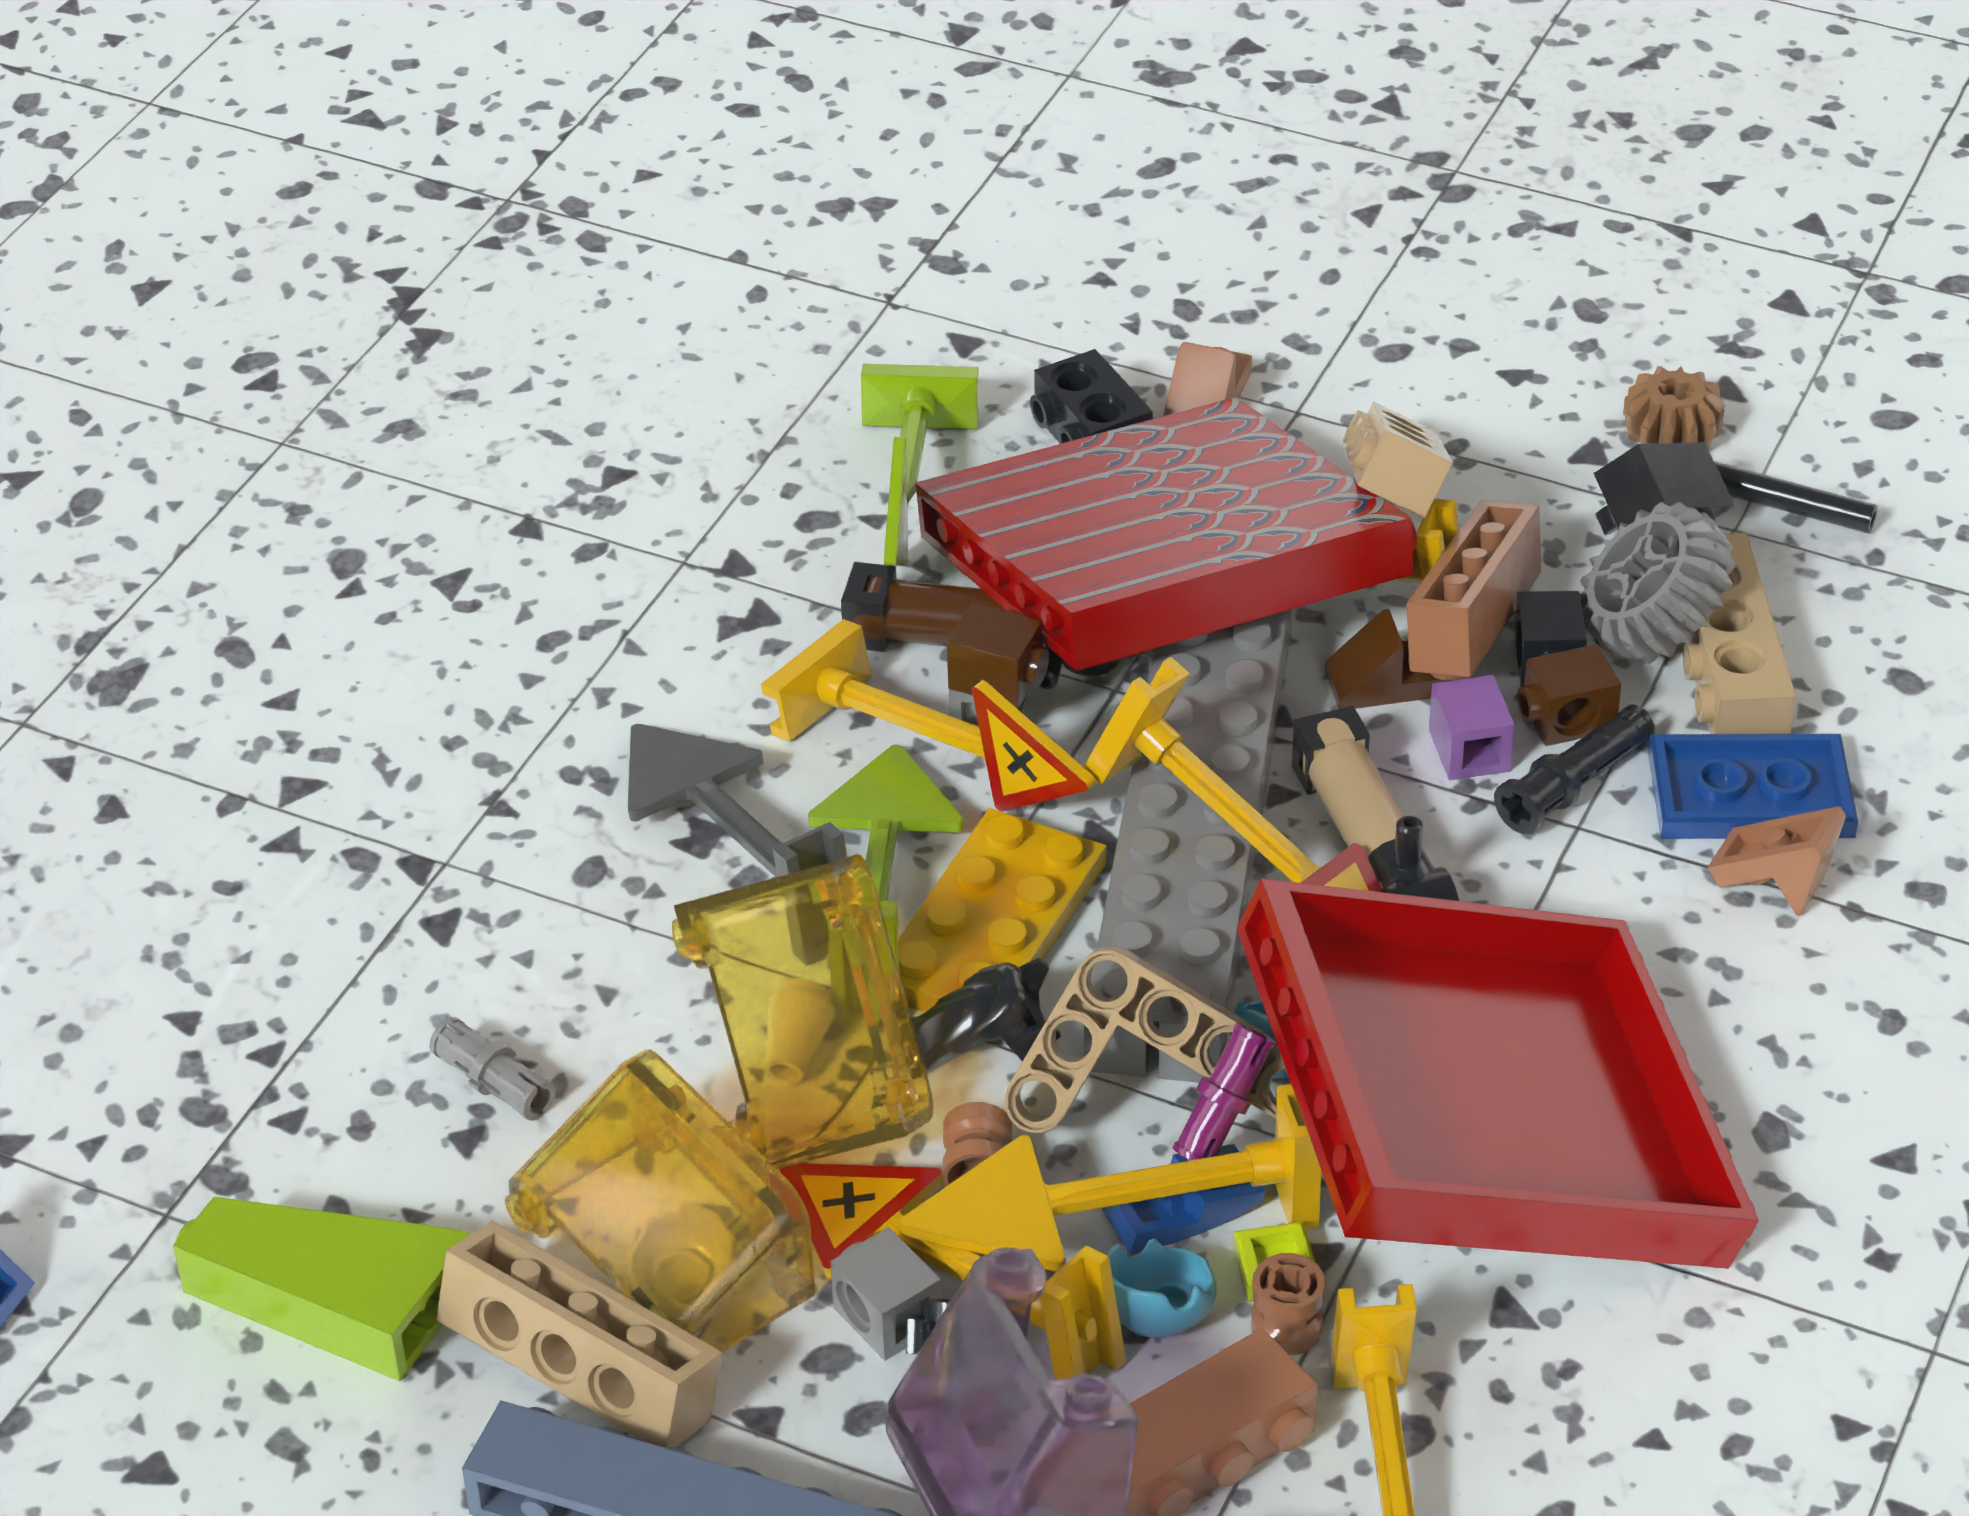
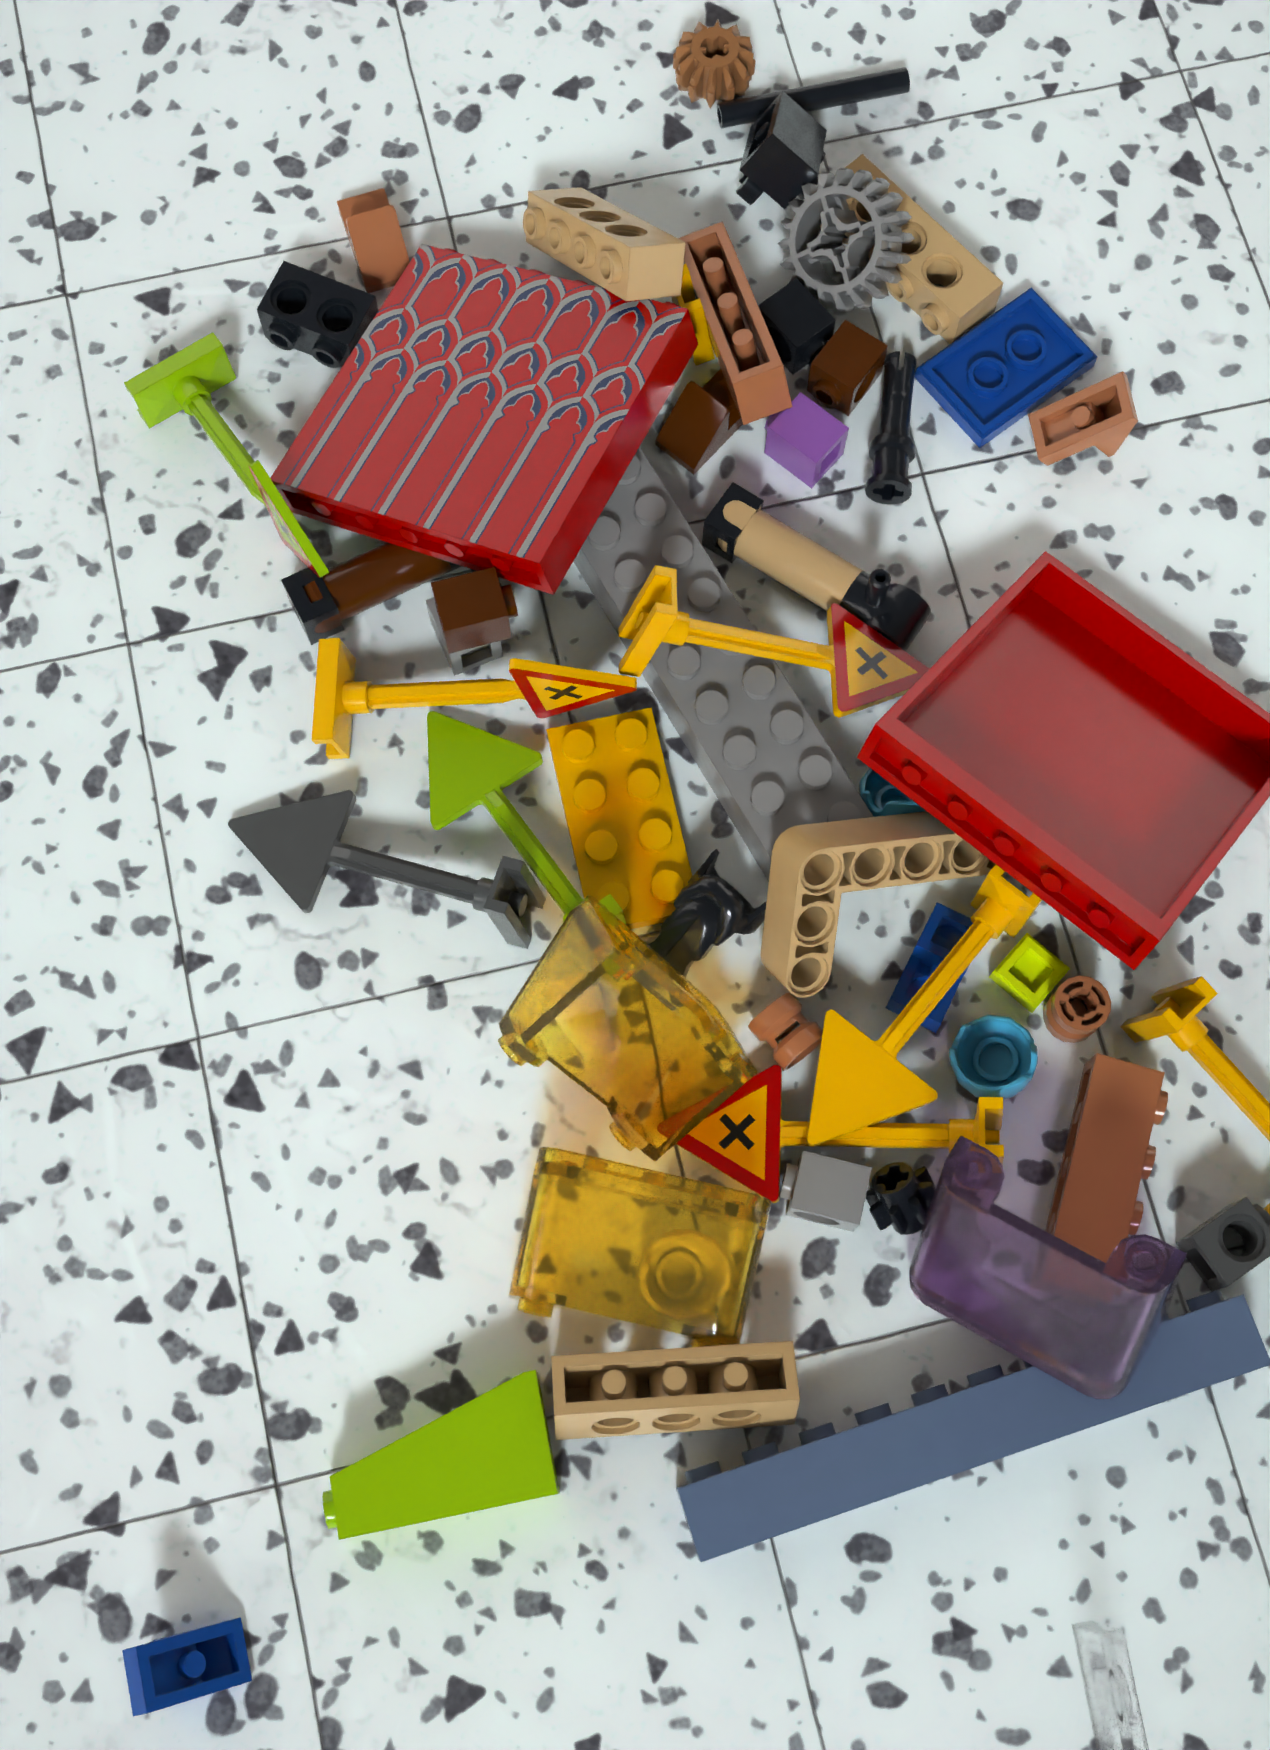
camera: 40 degrees left, 30 degrees up
(492, 1068) = (400, 1198): light grey pin -> none
(1224, 1093) = (941, 892): magenta pin -> none

